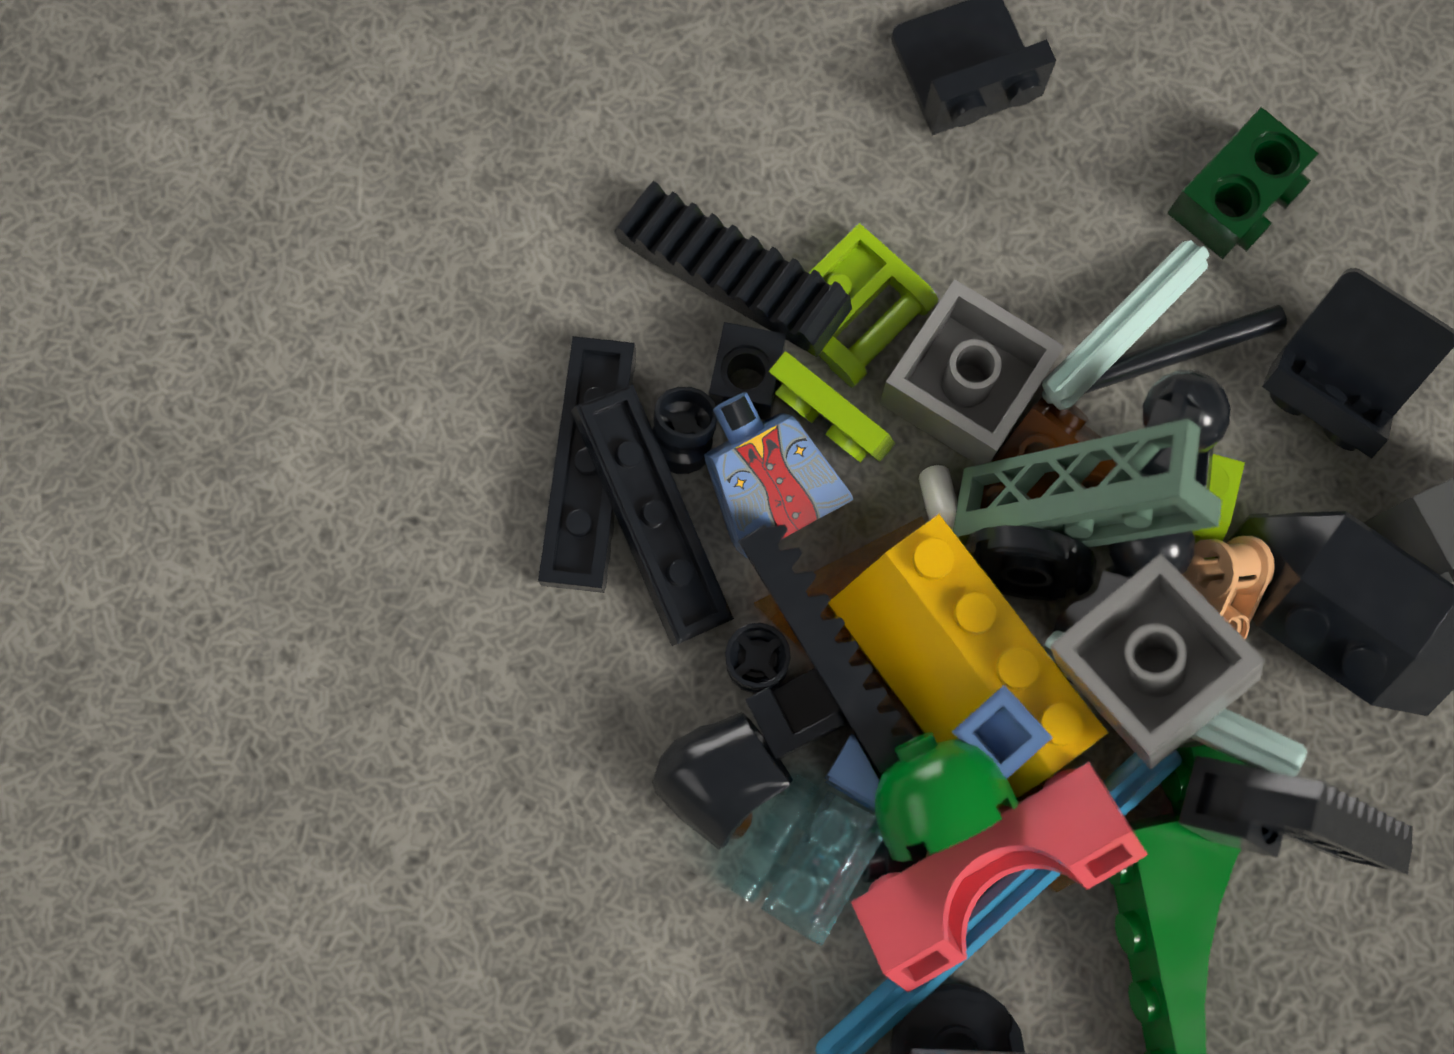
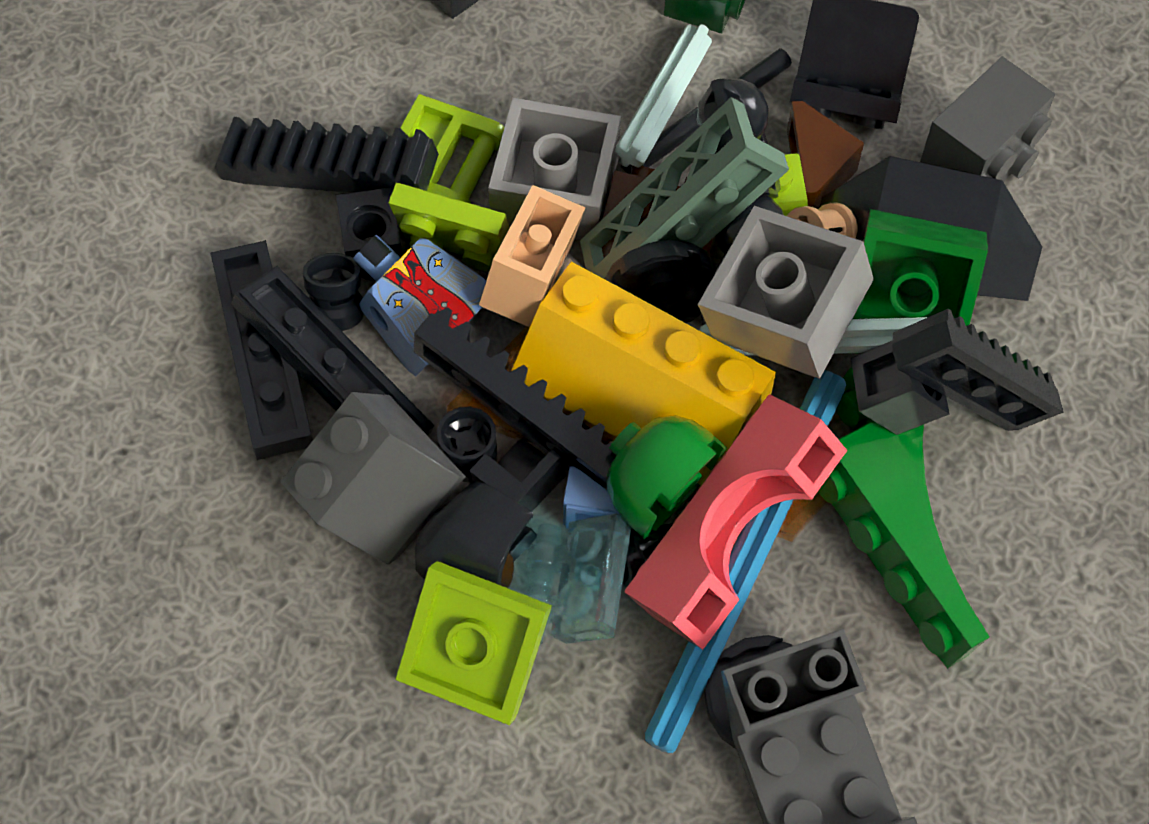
camera: 25 degrees left, 15 degrees down
(645, 666) = (372, 476): none -> dark grey slope
(680, 887) = (473, 642): none -> lime plate
(902, 484) = (531, 255): none -> light nougat brick
(1004, 731) = (693, 396): medium blue slope -> none
(1273, 455) = (825, 150): none -> reddish brown slope
(1322, 681) = (921, 268): none -> green brick

